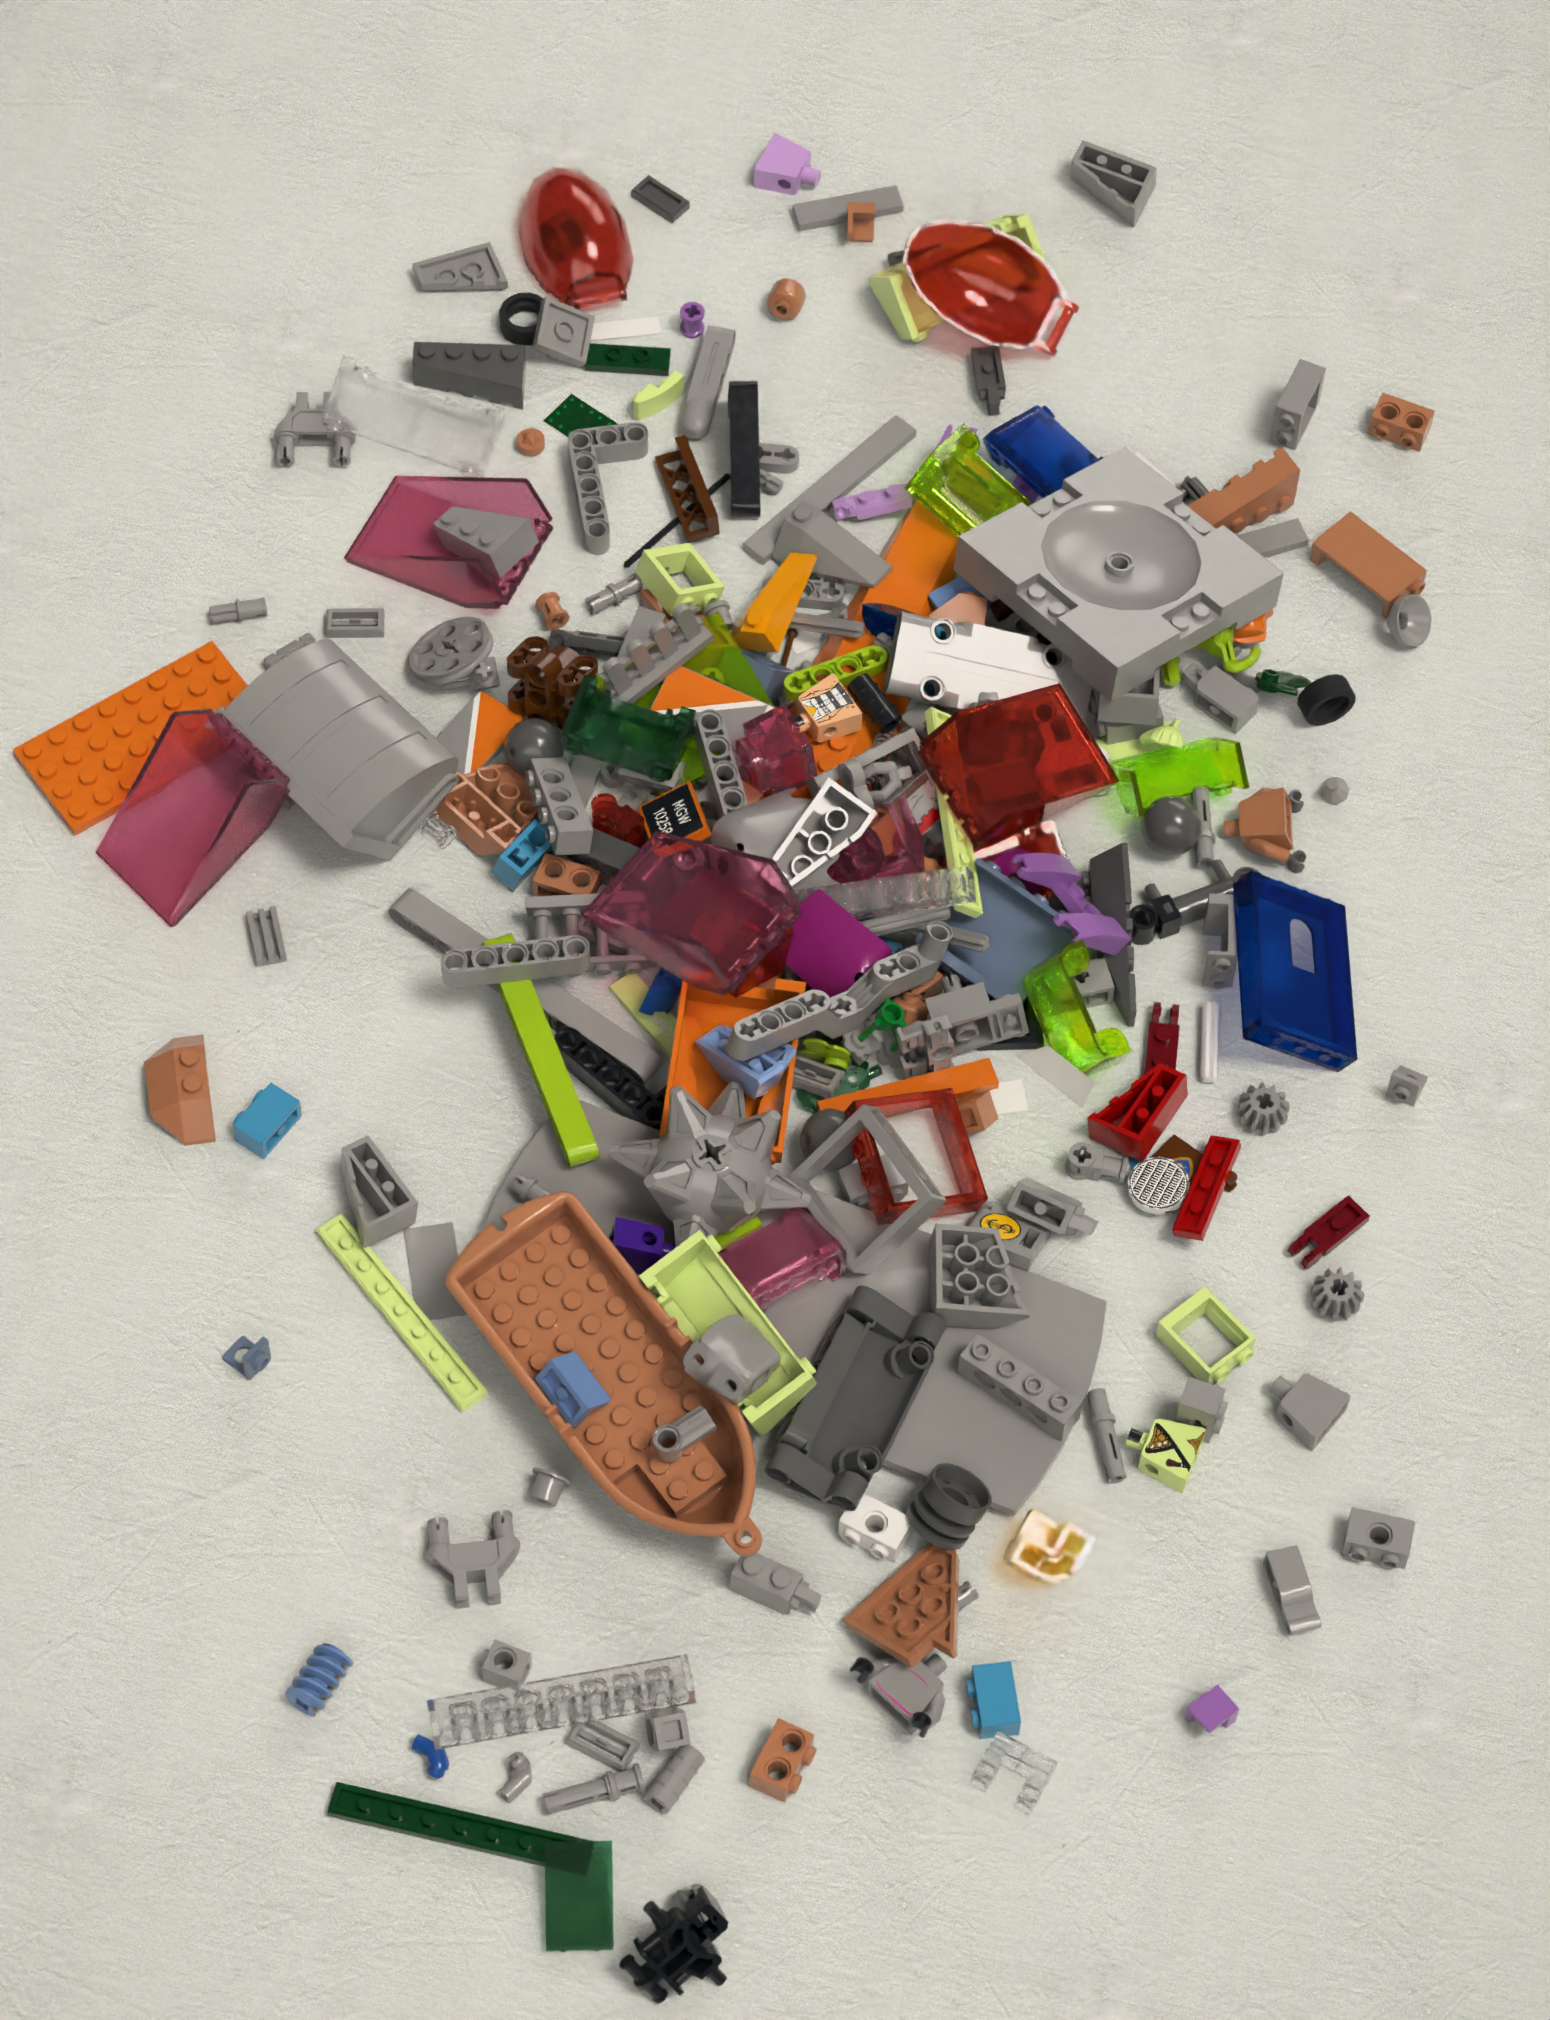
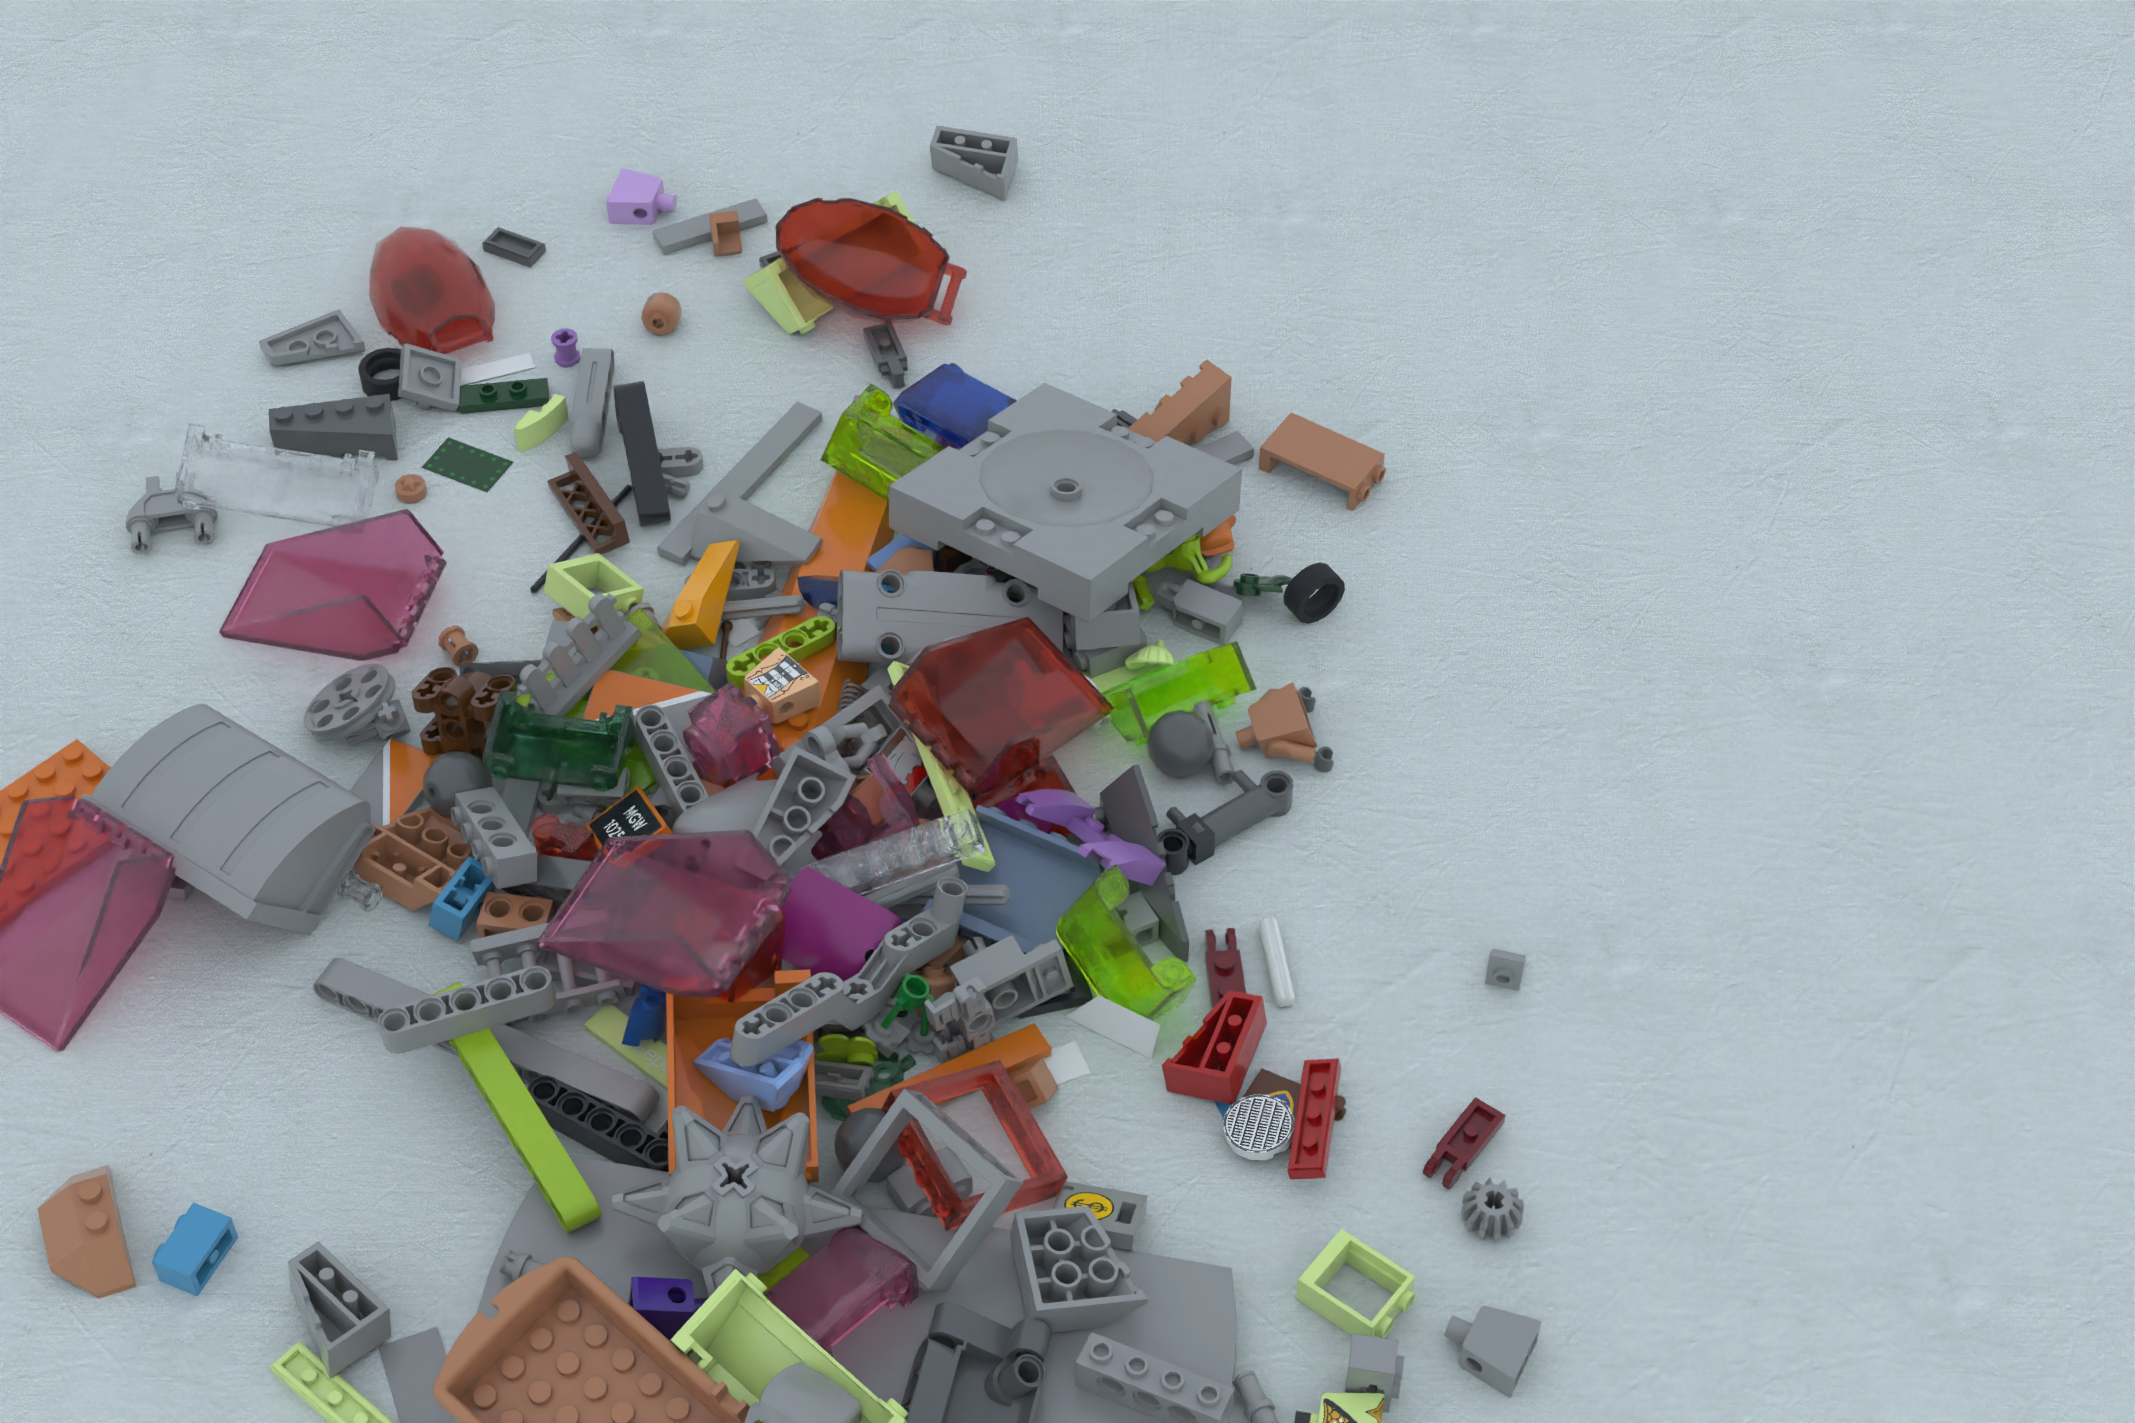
camera: 10 degrees left, 10 degrees down
(238, 610) = (104, 703): light grey axle -> none
(262, 916) = (166, 1021): light grey tile -> none
(355, 626) = (237, 698): light grey tile -> none
(490, 536) = (385, 578): light grey wedge -> none
(585, 451) = (473, 486): light grey beam -> none
(613, 594) = (523, 619): light grey pin -> none
(873, 503) = (791, 486): lavender hinge -> none
(874, 703) = (830, 672): black axle -> none
(1050, 1208) = (1142, 1175): light grey hinge -> none
(1094, 1164) = (1180, 1117): light grey connector -> none
(1220, 921) = (1262, 831): light grey panel -> none
(1263, 1108) = (1355, 1021): light grey gear -> none
(1283, 1004) = (1351, 901): clear blue panel -> none
(1297, 404) = (1211, 323): light grey window -> none
(1334, 790) = (1345, 682): light grey rock -> none
(1401, 422) = (1319, 327): nougat brick -> none
(1415, 620) = (1379, 504): light grey piece -> none

